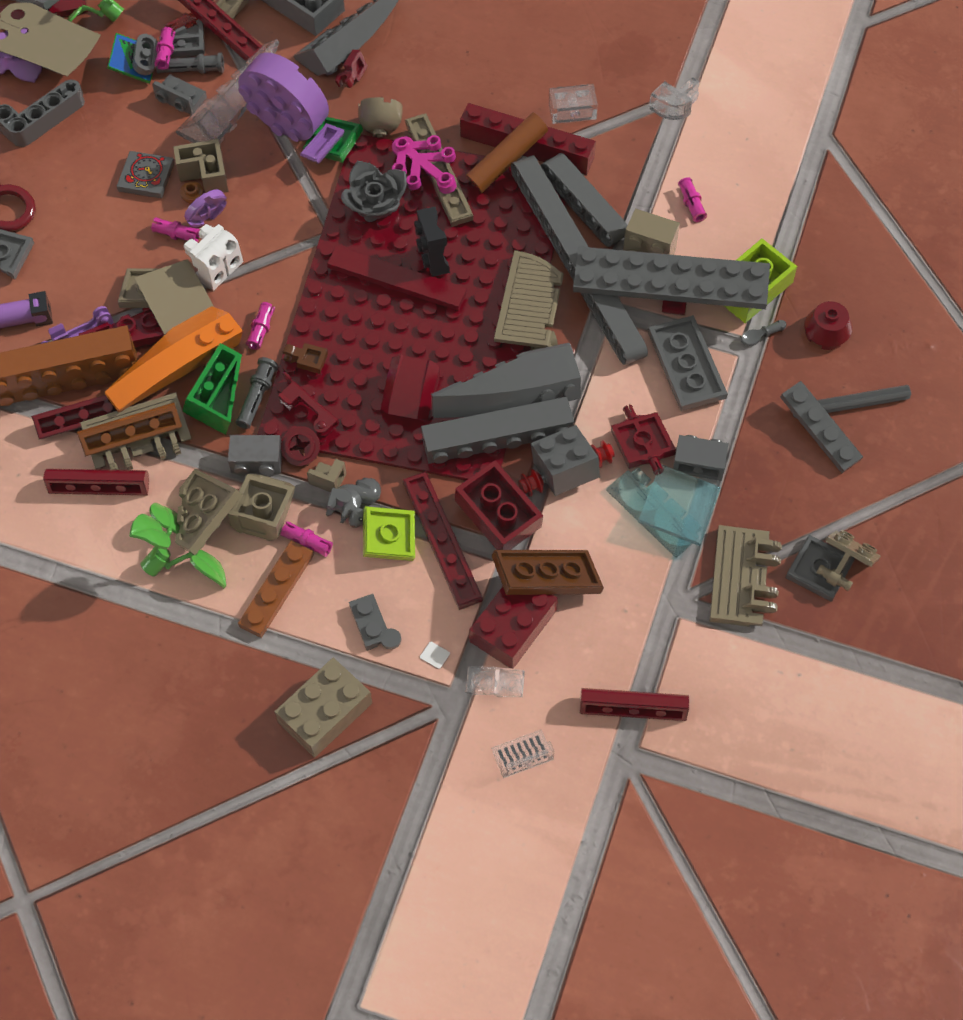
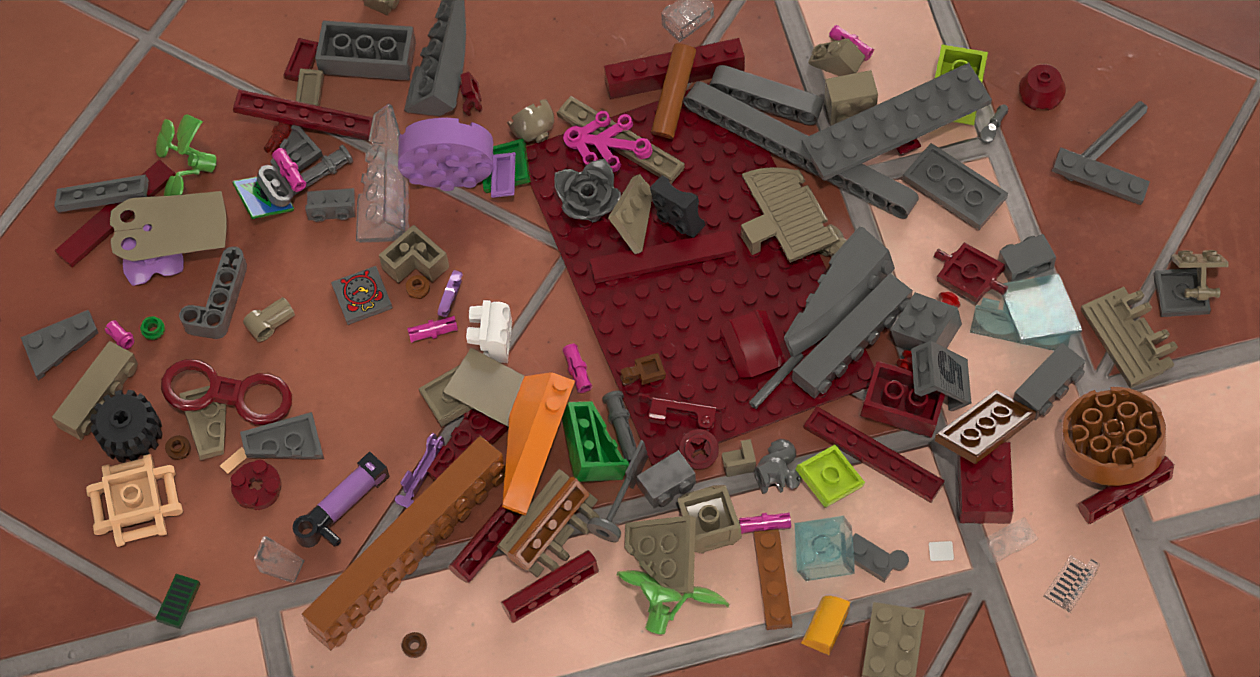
camera: 30 degrees left, 0 degrees up
(54, 151) = (263, 323): none -> dark tan piece
(241, 424) = (604, 527): none -> dark grey piece
(288, 654) = (826, 624): none -> light orange brick
(332, 588) = (824, 548): none -> clear light blue brick
(392, 228) = (632, 213): none -> dark tan wing
(403, 429) = (775, 380): none -> dark grey piece
(485, 299) = (756, 231): none -> dark tan panel
(544, 505) = (942, 371): none -> dark grey panel
(638, 570) = (1050, 380): none -> dark grey brick
(653, 649) = (1114, 436): none -> dark orange brick
(669, 202) = (837, 57): none -> dark tan slope

